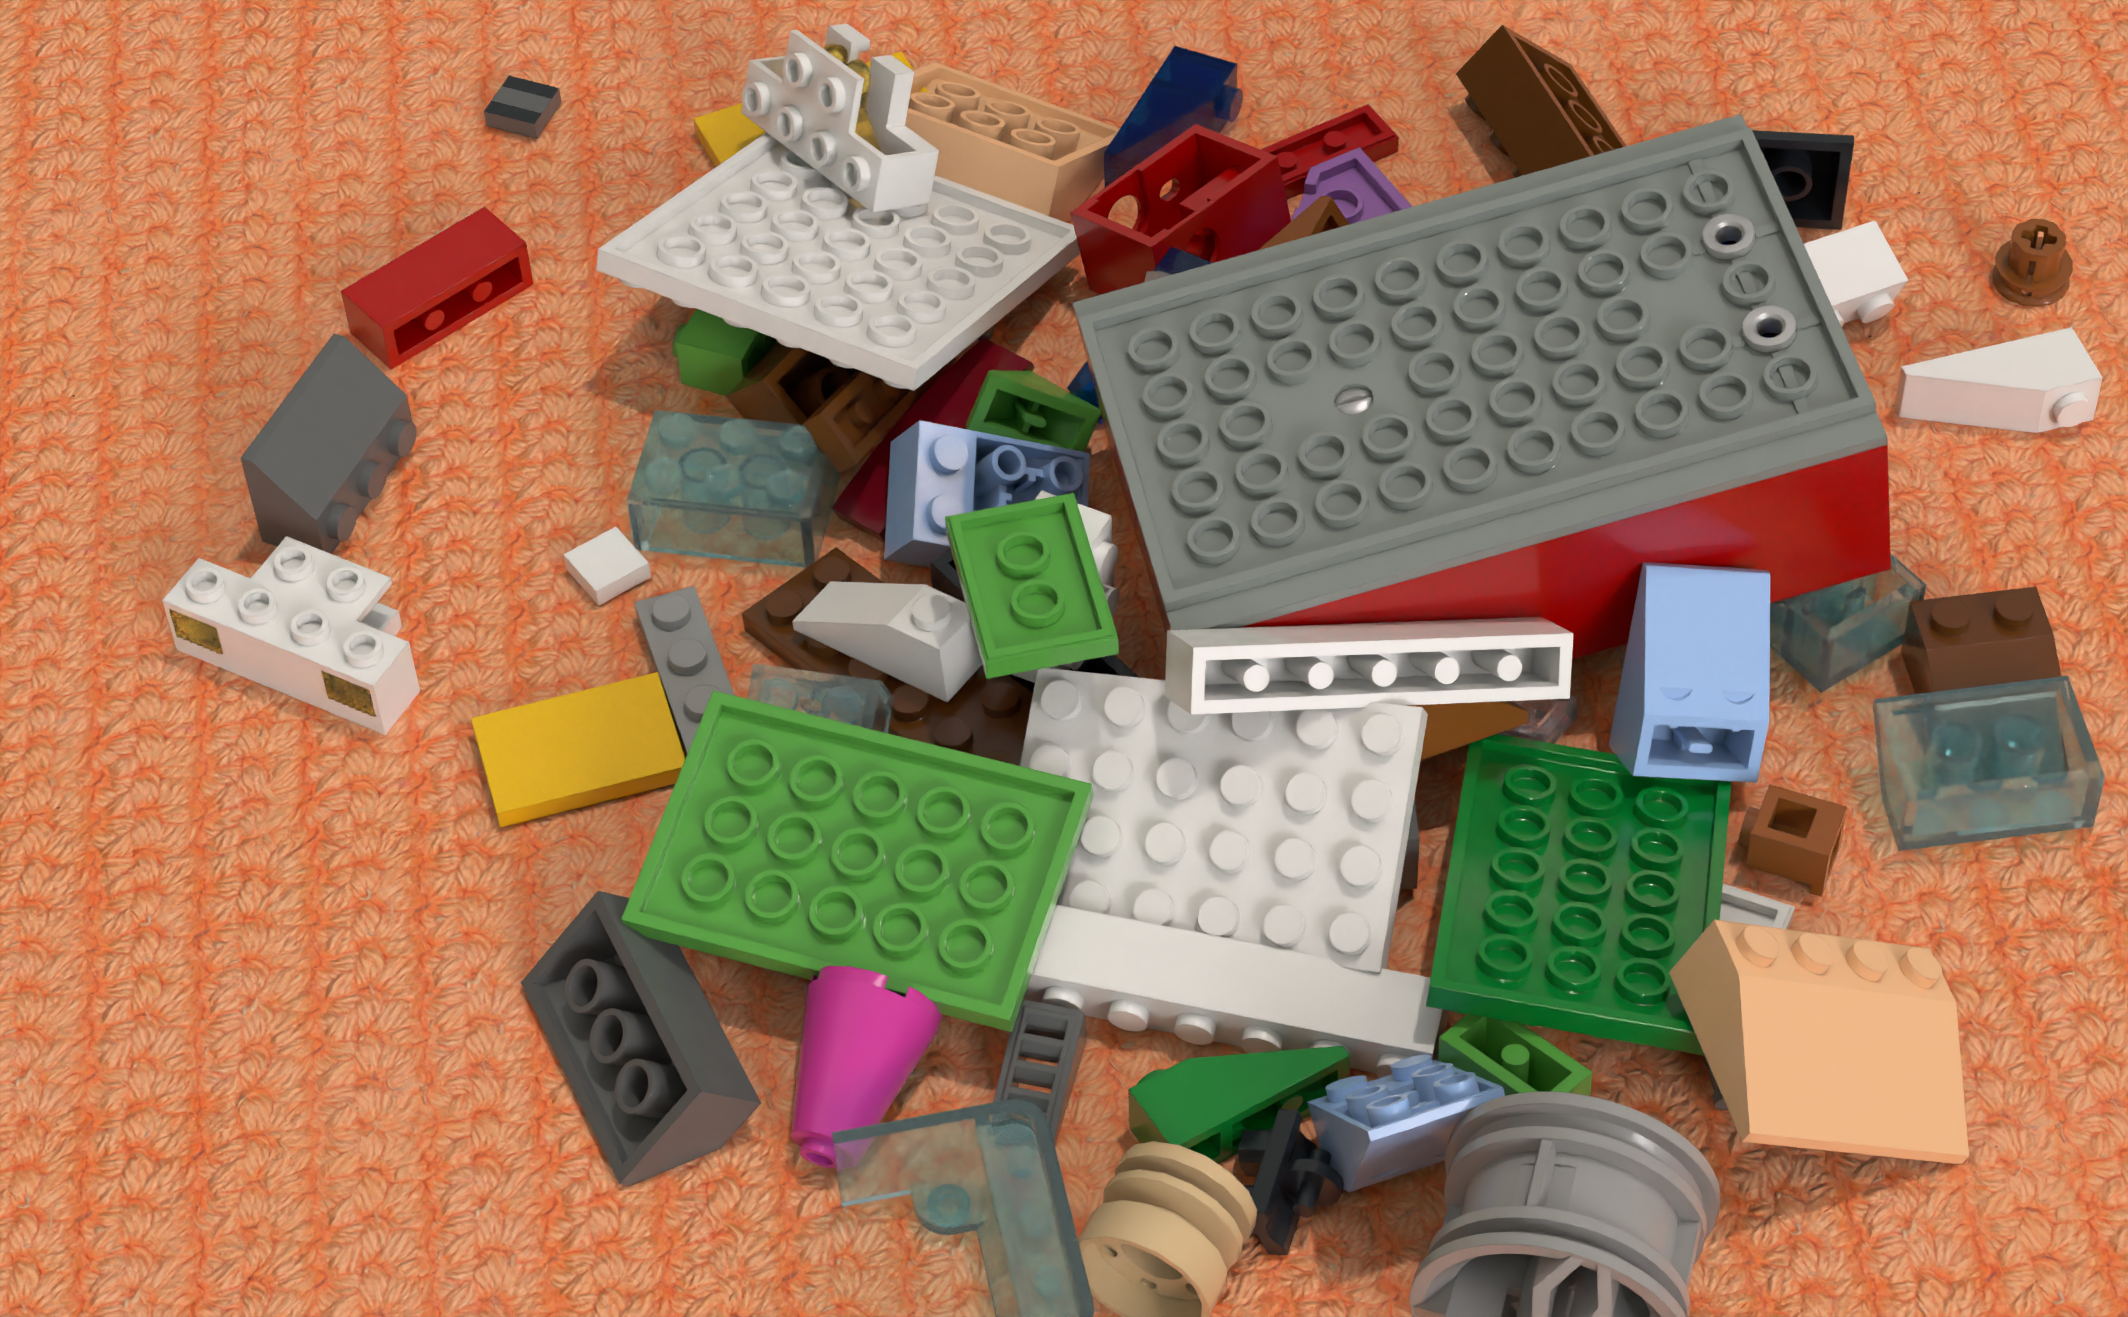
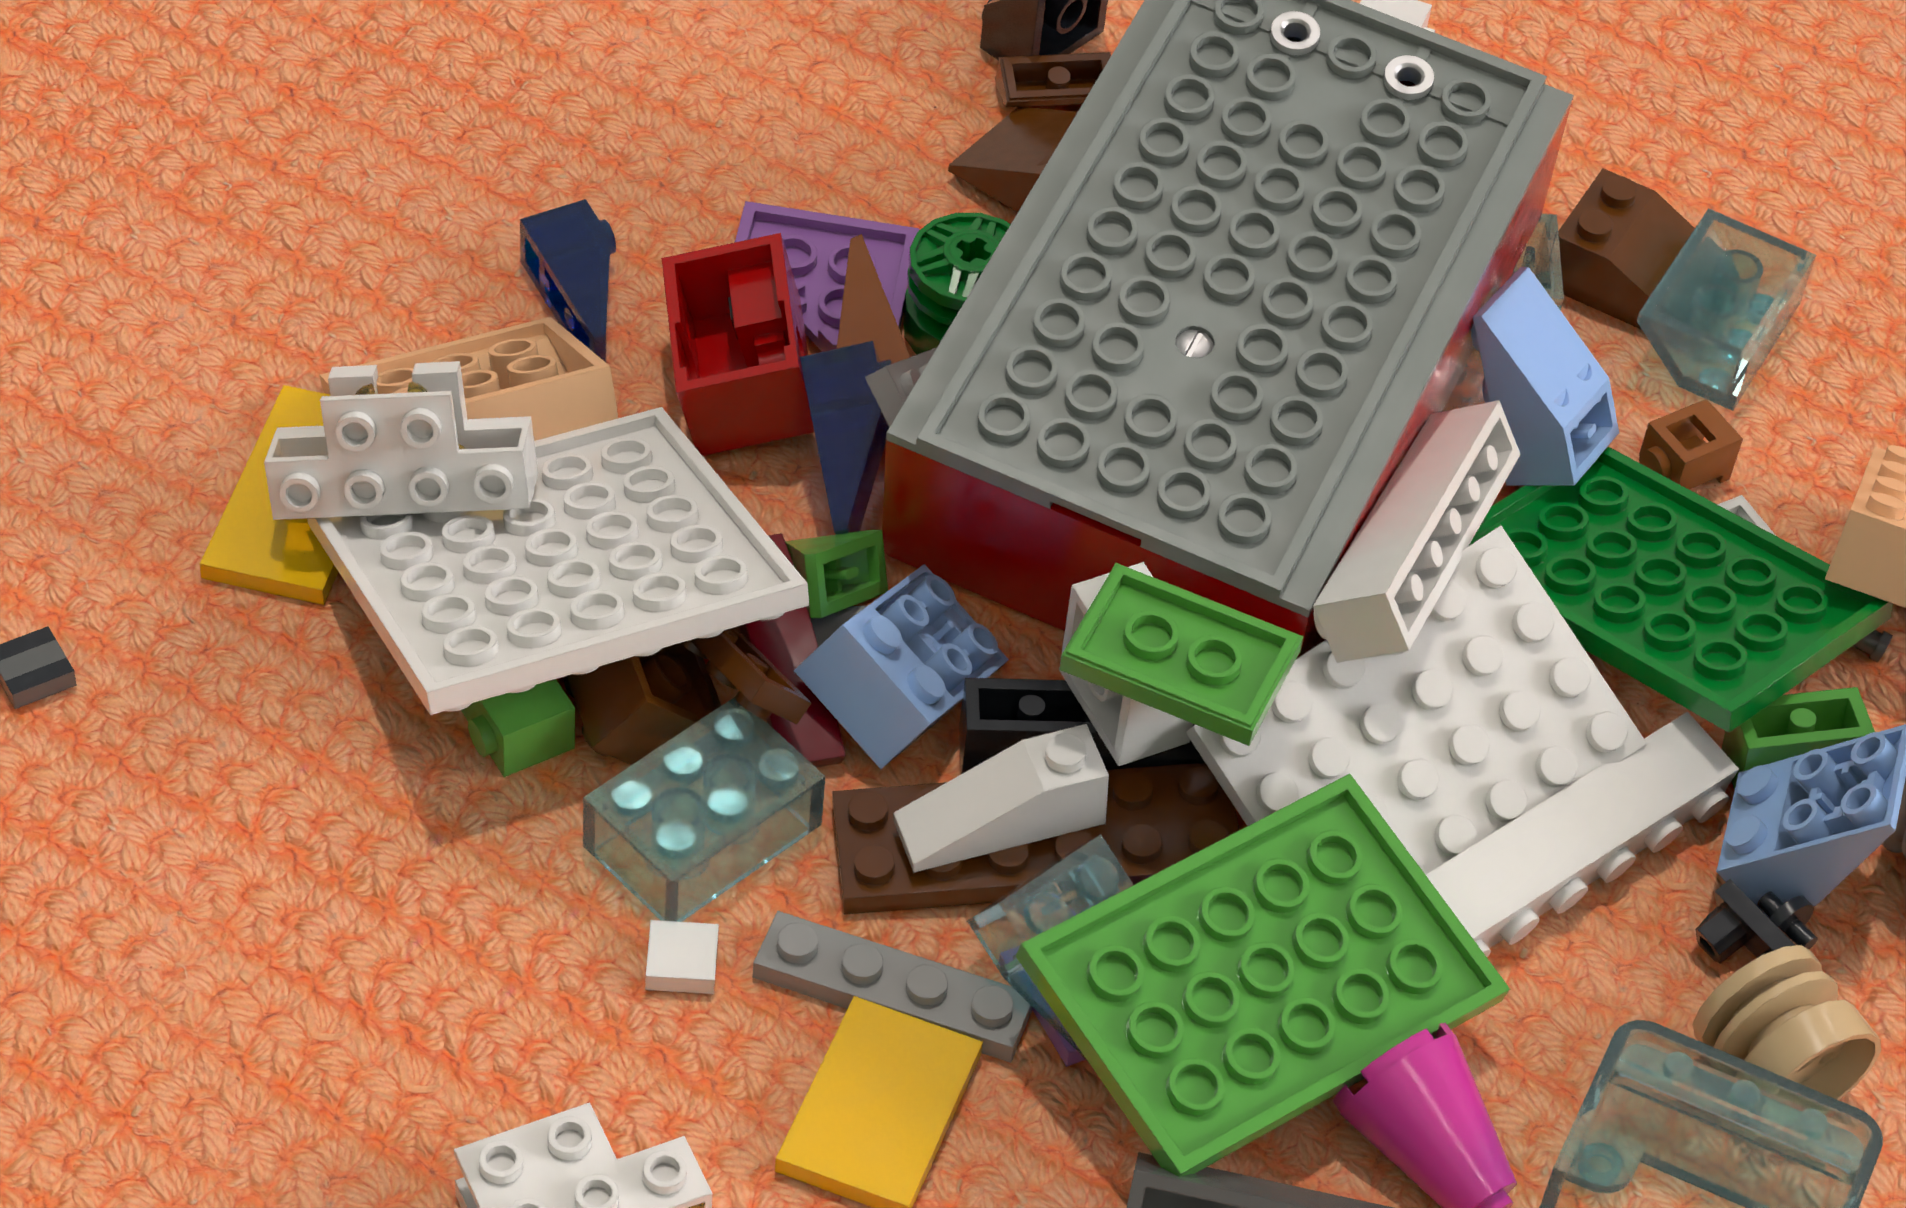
camera: 60 degrees left, 0 degrees up
(327, 449) = (361, 1064): dark grey slope -> none
(437, 287) = (208, 863): red brick -> none
(1049, 1035) = (1536, 1012): dark grey slope -> none
(1216, 1098) = (1659, 936): green slope -> none
(1331, 139) = (708, 213): red tile -> none
(1534, 104) = (859, 96): reddish brown slope -> none

